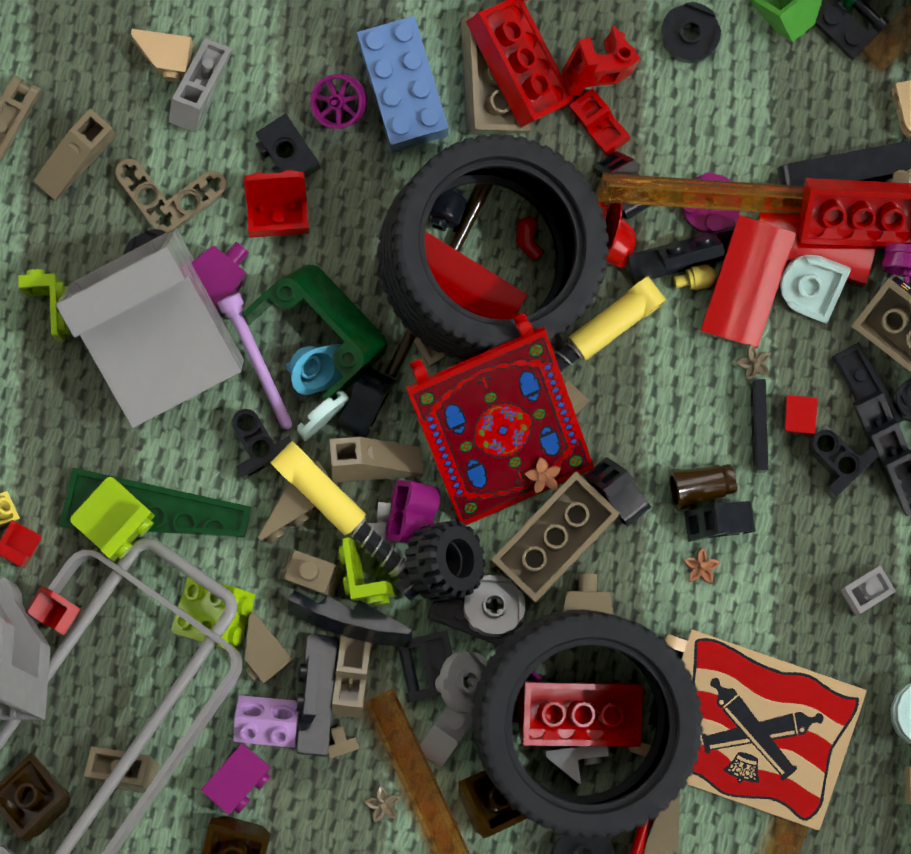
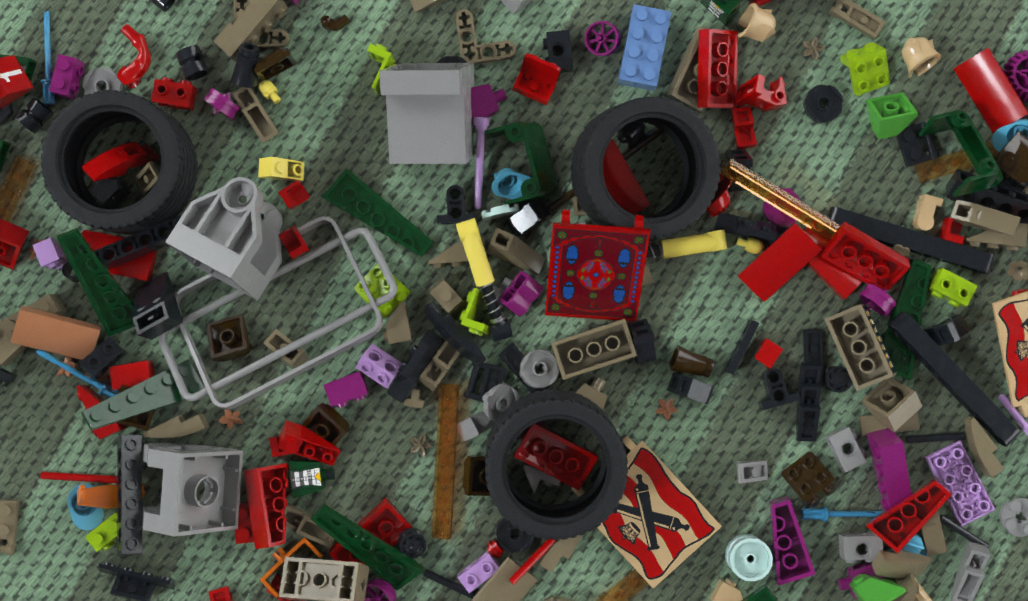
camera: 35 degrees right, 5 degrees up
(112, 518) = (353, 208): lime bracket -> none
(444, 560) = (524, 330): black tyre -> none
(524, 238) = (666, 171): red arm -> none
(543, 475) = (605, 311): nougat plant -> none
(754, 362) = (757, 309): dark tan plant -> none
(813, 285) = (815, 284): light aqua tile -> none

